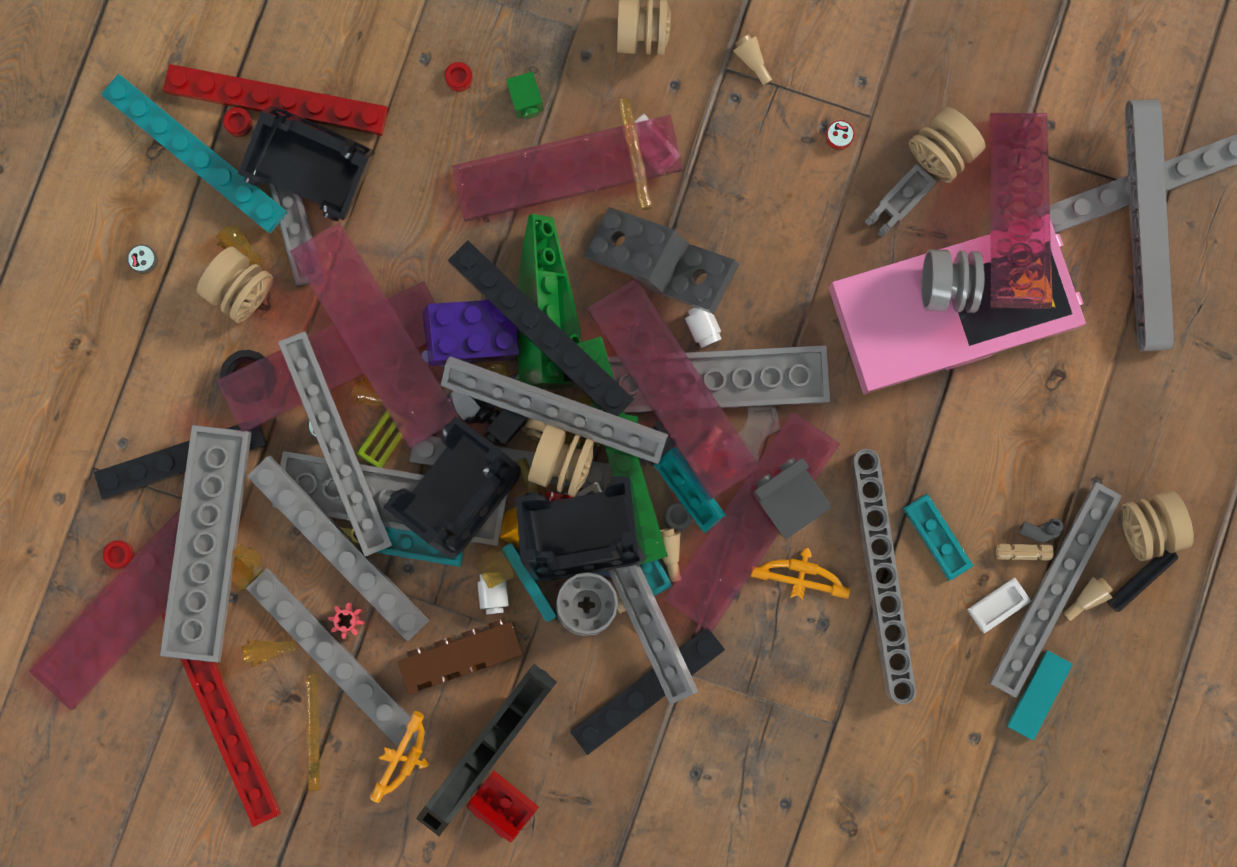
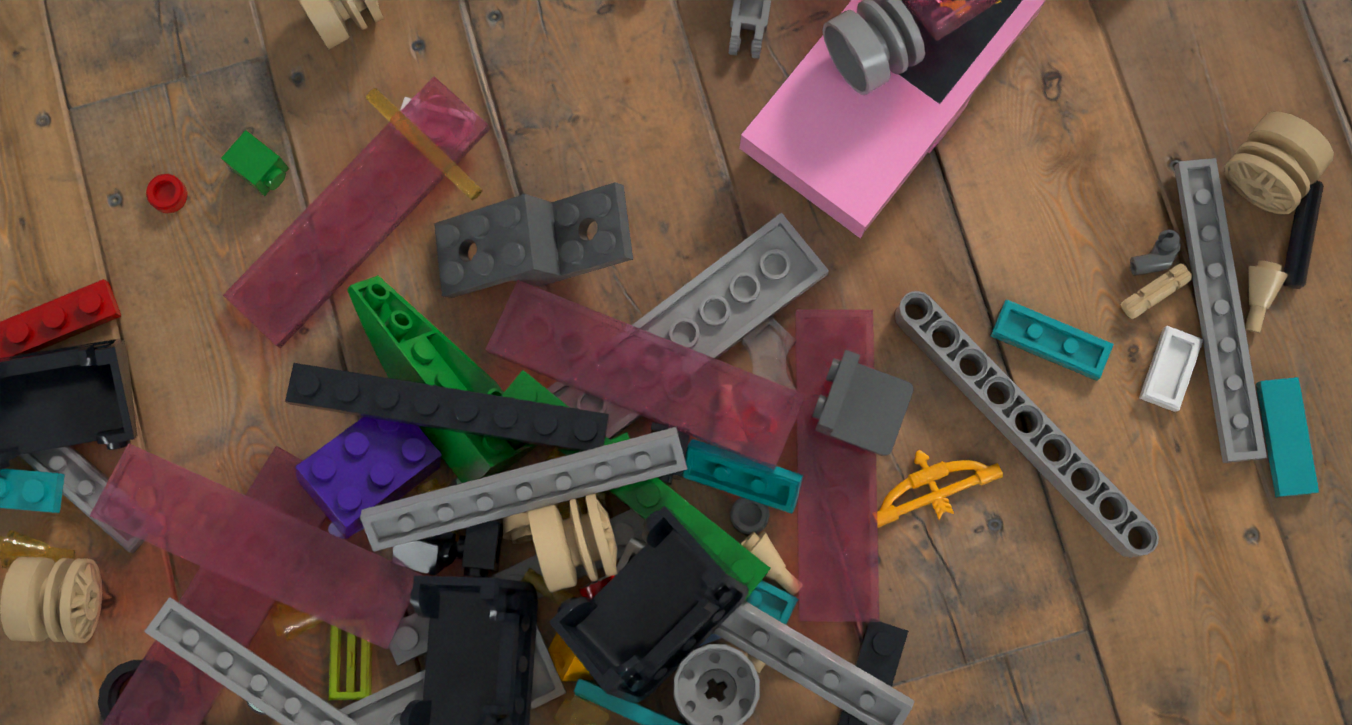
camera: 30 degrees left, 5 degrees down
(703, 327) = (630, 283): white brick -> none

